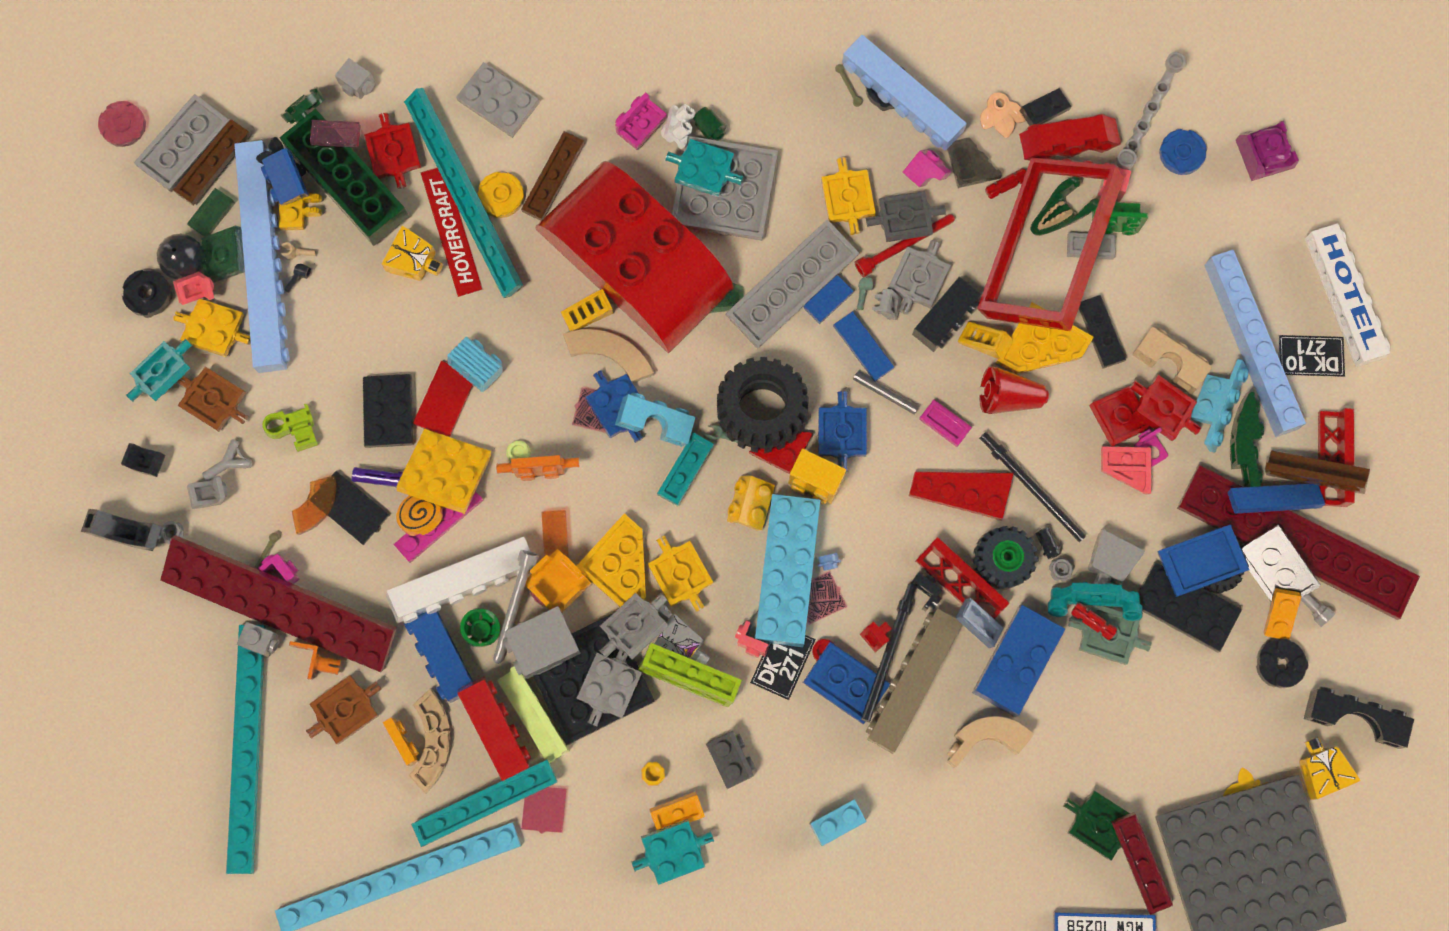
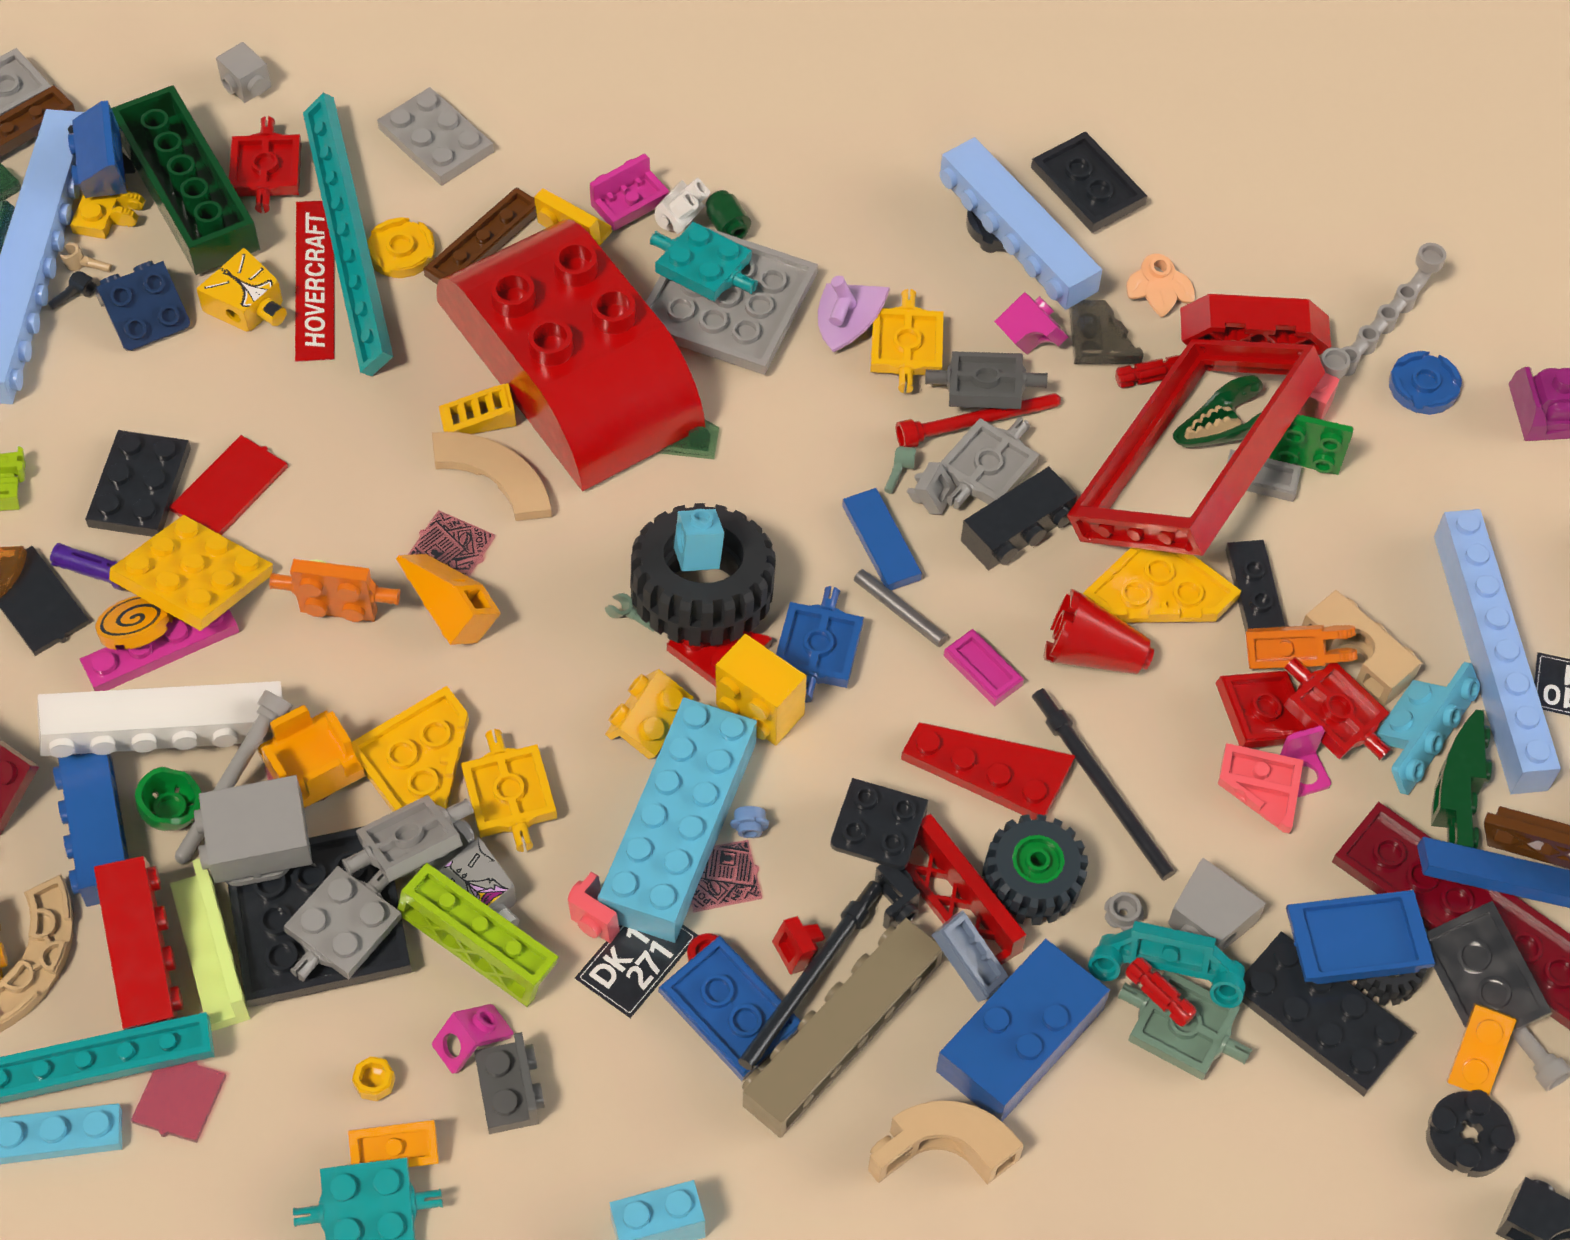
camera: 10 degrees right, 20 degrees down
(296, 110) = (157, 79): dark green plate -> none
(335, 133) = (188, 115): clear pink tile -> none
(347, 279) = (143, 305): none -> dark blue bracket
(474, 363) = (288, 443): medium azure brick -> none
(555, 532) = (334, 690): clear orange tile -> none
(607, 402) = (485, 543): blue plate -> none
(609, 150) = (553, 209): none -> yellow bracket
(610, 452) = (453, 599): none -> light orange slope
(675, 423) = (512, 544): medium azure arch -> none
(685, 469) = (560, 647): teal plate -> none
(703, 732) = (473, 1029): none -> dark pink bracket
(760, 394) = (698, 539): none -> medium azure brick
(792, 284) = (793, 434): light grey plate -> none
(805, 182) = (848, 311): none -> lavender shield
(828, 299) = (843, 467): blue tile -> none
(857, 101) = (951, 232): olive hinge -> none
(908, 550) = (878, 824): none -> black bracket
(940, 42) = (1088, 181): none -> black plate
(997, 348) = (1076, 563): yellow slope -> none
(1045, 108) = (1229, 282): black plate -> none
(1048, 543) = (1112, 875): black pin -> none
(1126, 372) = (1279, 645): none -> orange hinge

